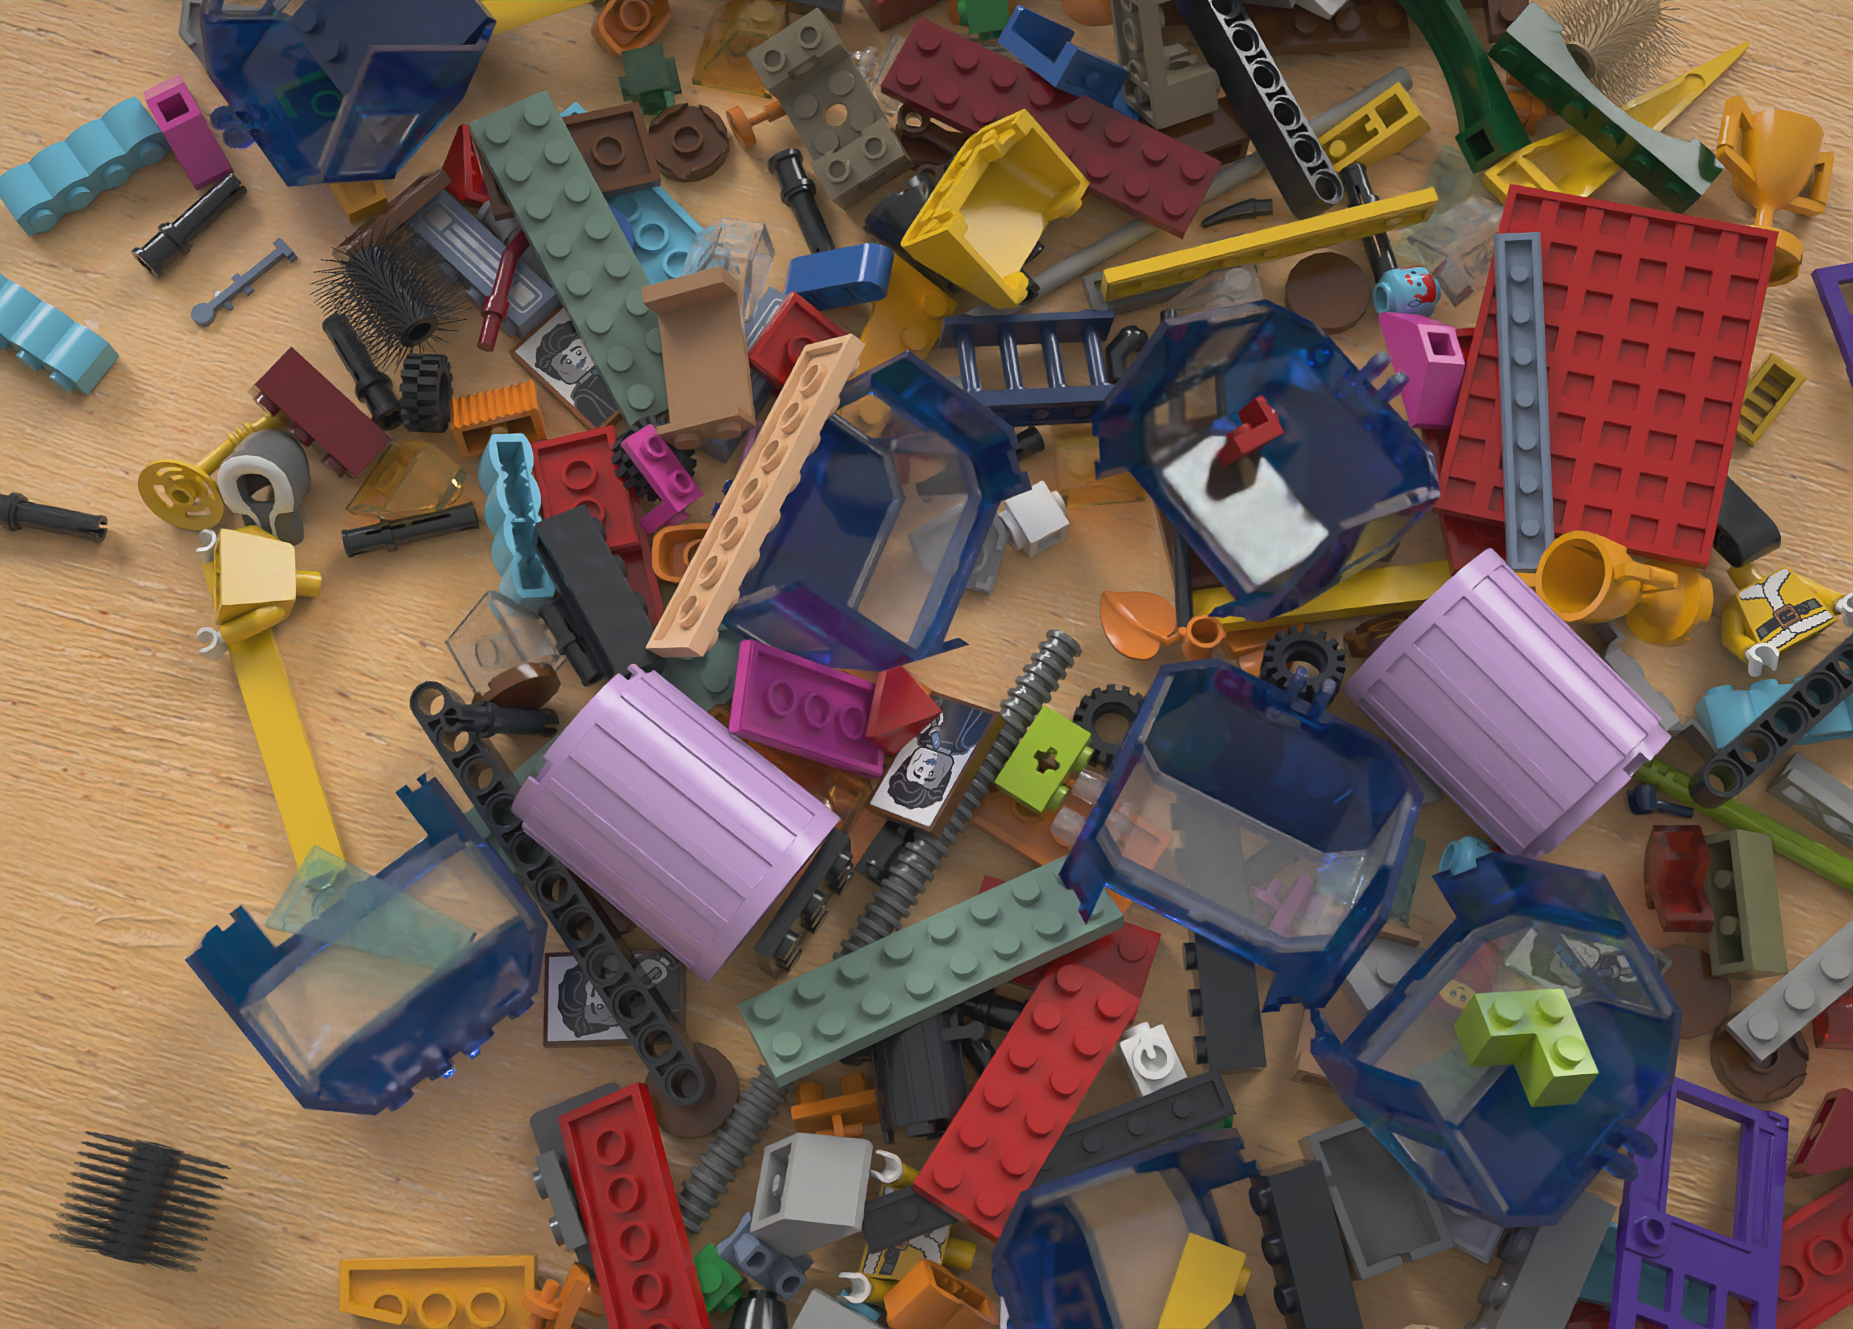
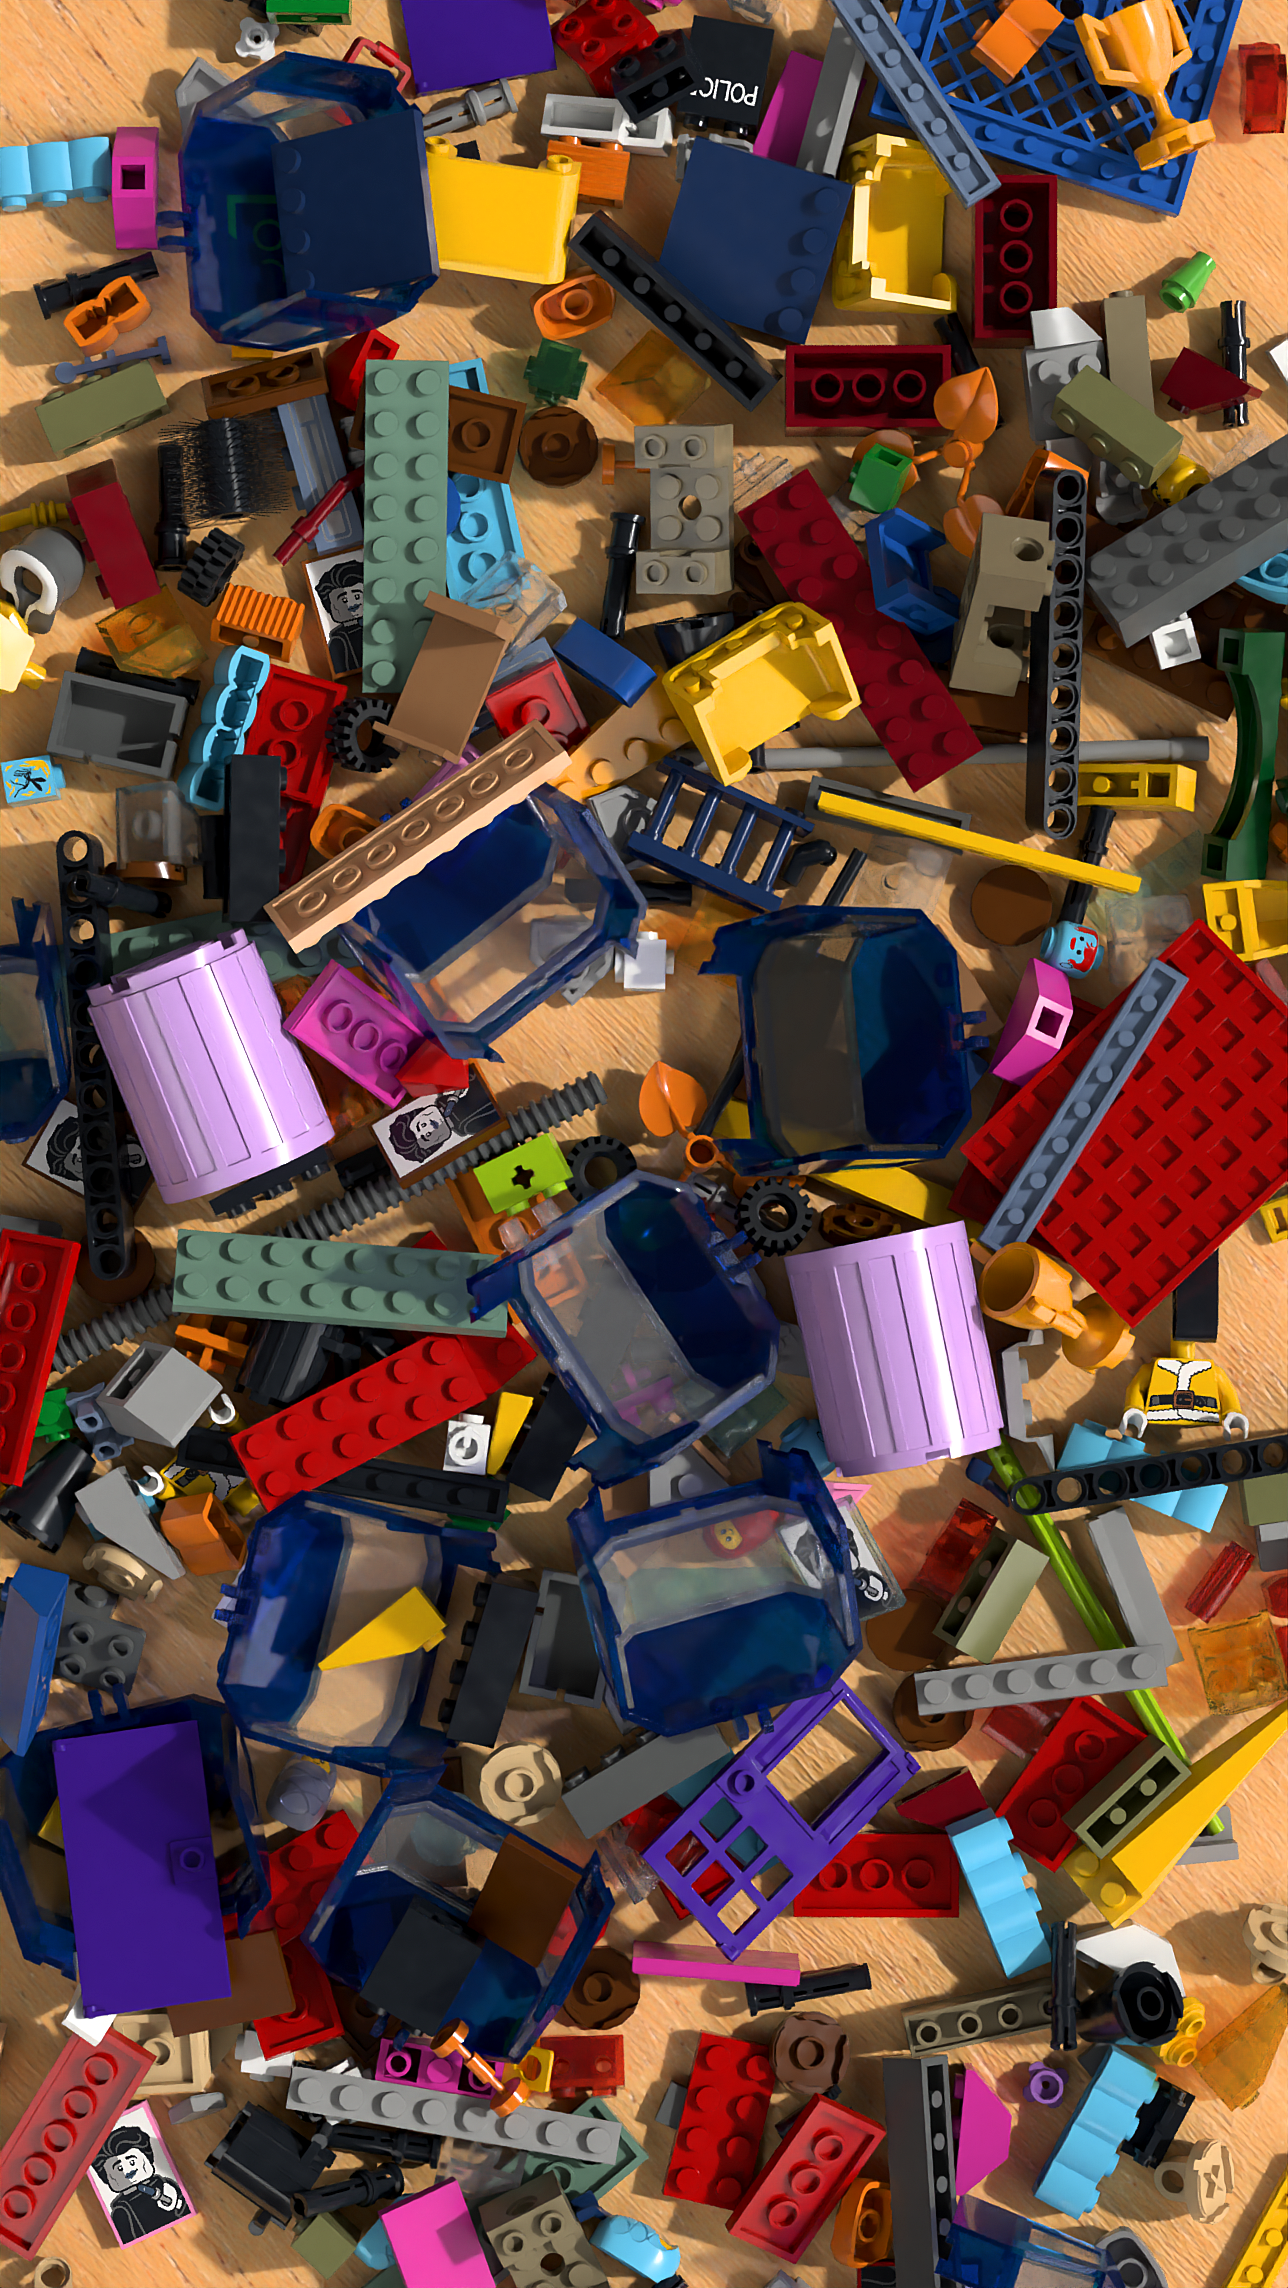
camera: 30 degrees right, 15 degrees up
(214, 237) = (116, 310): none -> orange brick
(252, 320) = (102, 408): none -> olive brick
(358, 675) = (32, 780): none -> medium azure brick
(412, 577) = (117, 726): none -> dark grey piece
(664, 475) = (361, 760): dark pink bracket -> none
(1172, 1008) = (509, 1418): none -> yellow slope
(1242, 210) = (991, 789): black helmet -> none
(1258, 431) = (843, 1009): red bracket -> none
(1535, 1035) = (753, 1600): lime brick -> none

